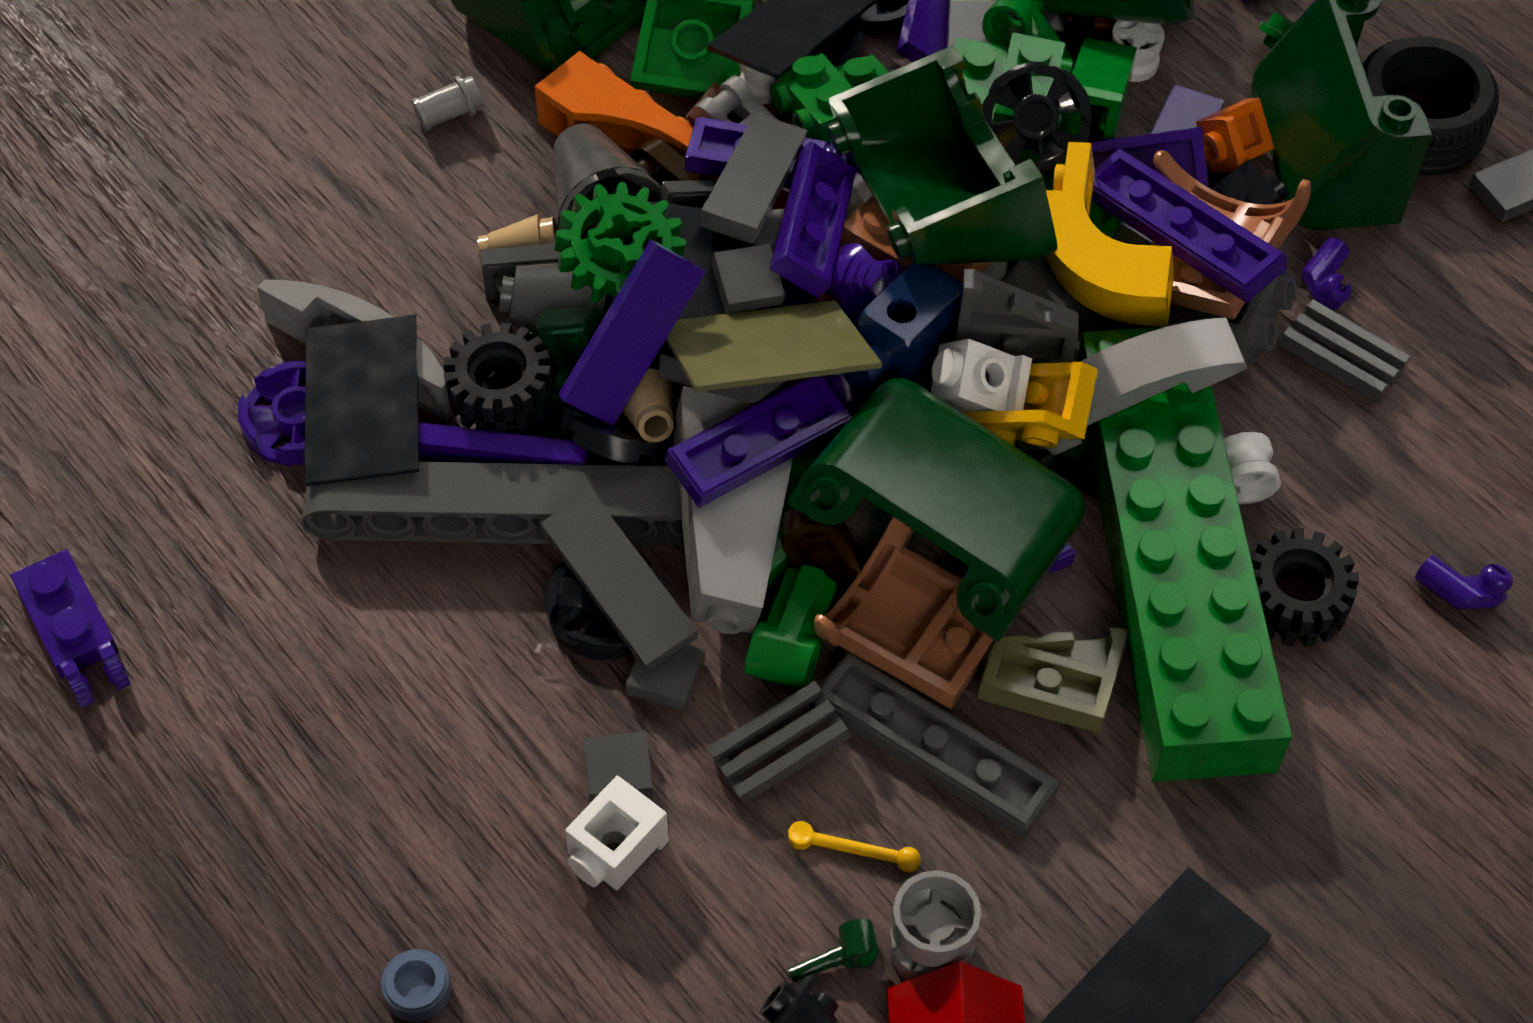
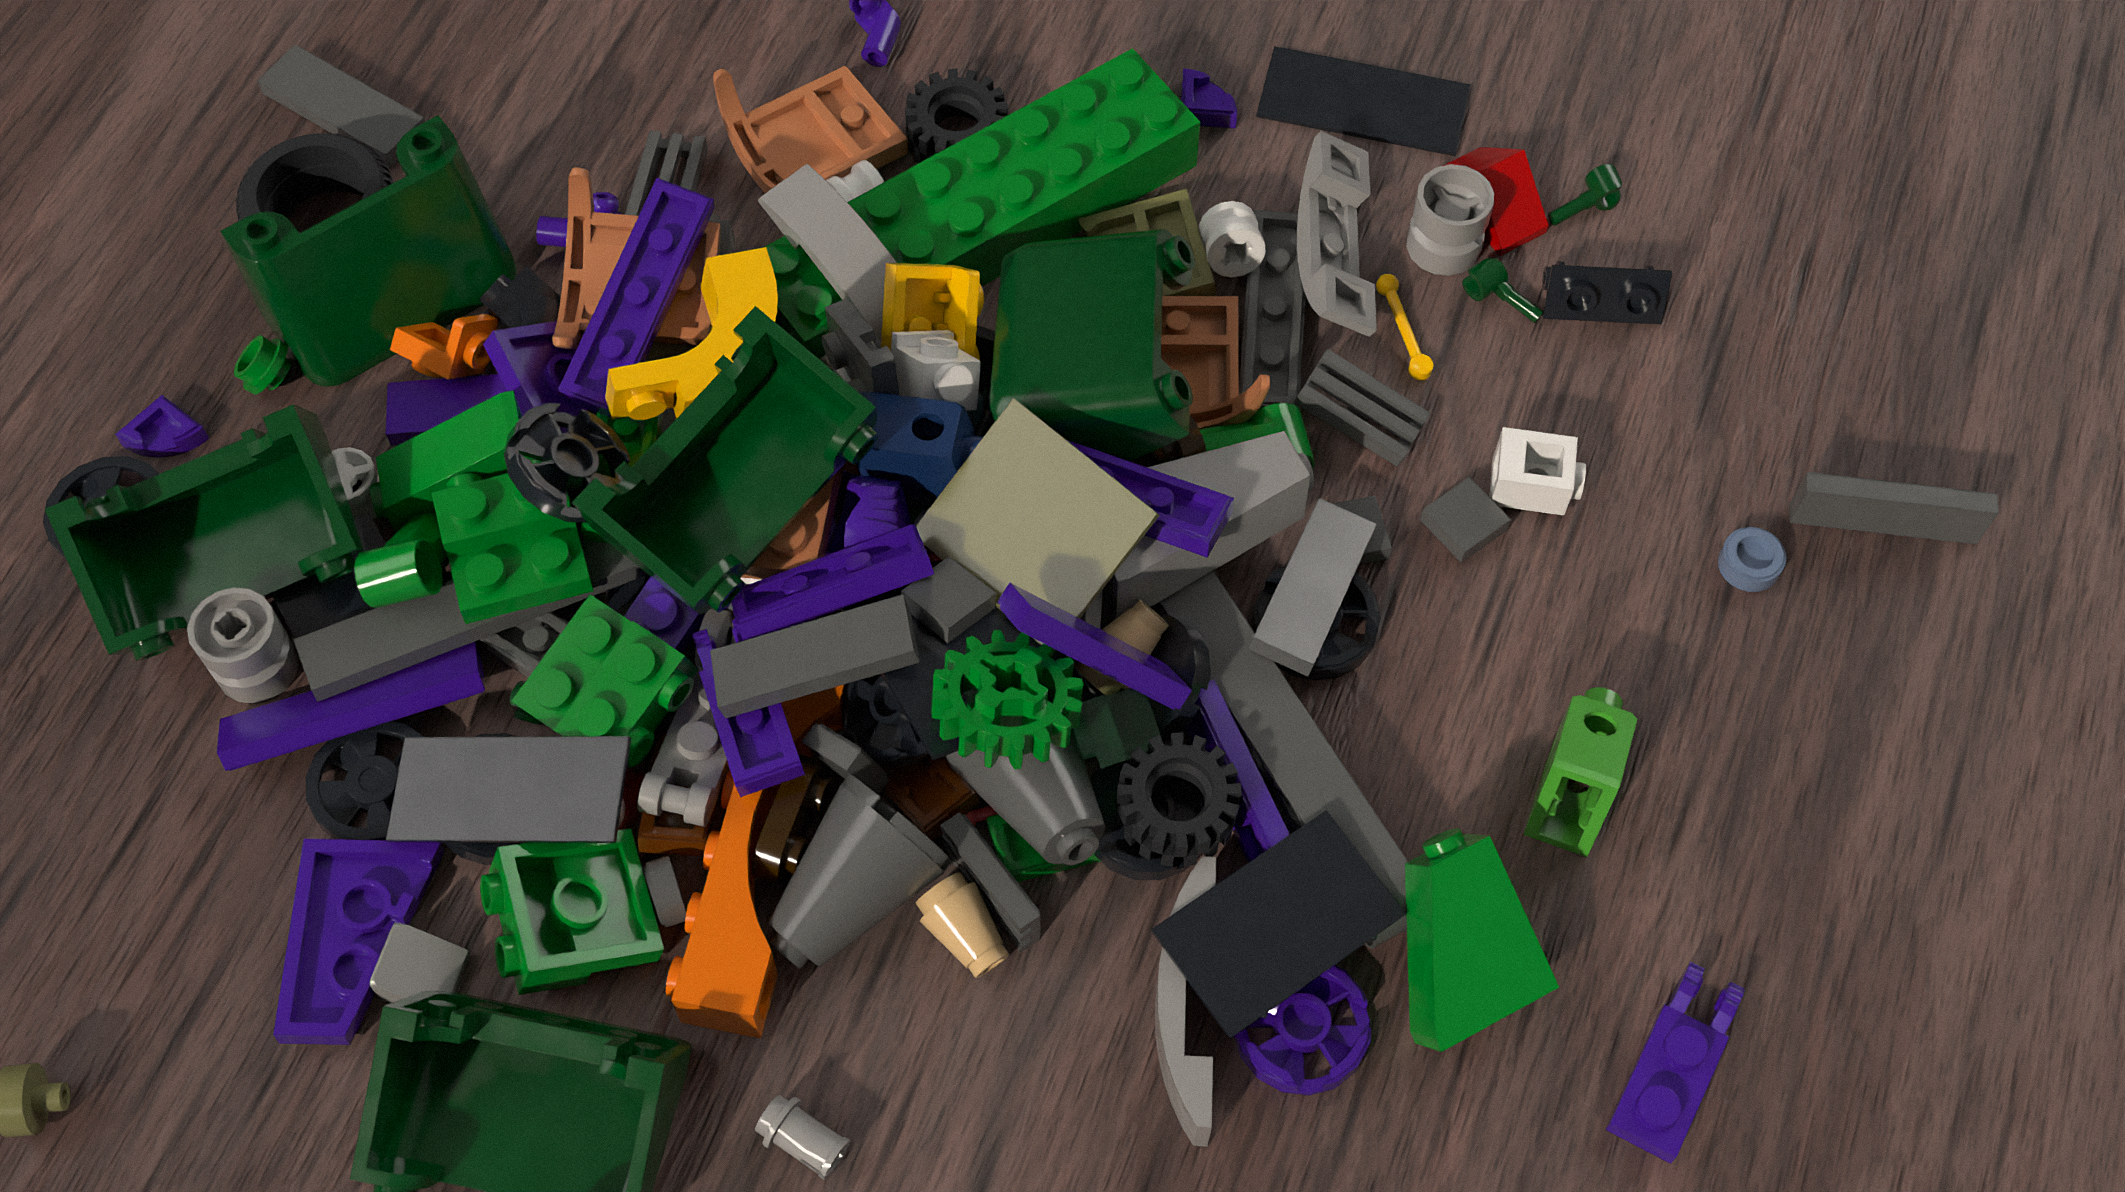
camera: 120 degrees left, 5 degrees up
(251, 514) = (1467, 942): none -> green slope
(323, 681) = (1590, 750): none -> bright green torso
(673, 92) = (665, 891): none -> dark grey tile
(972, 818) = (1327, 234): none -> light grey slope
(1021, 723) = (1237, 224): none -> white wheel
(1226, 824) = (1207, 100): none -> dark purple tile
(1338, 464) = (818, 124): none -> nougat piece

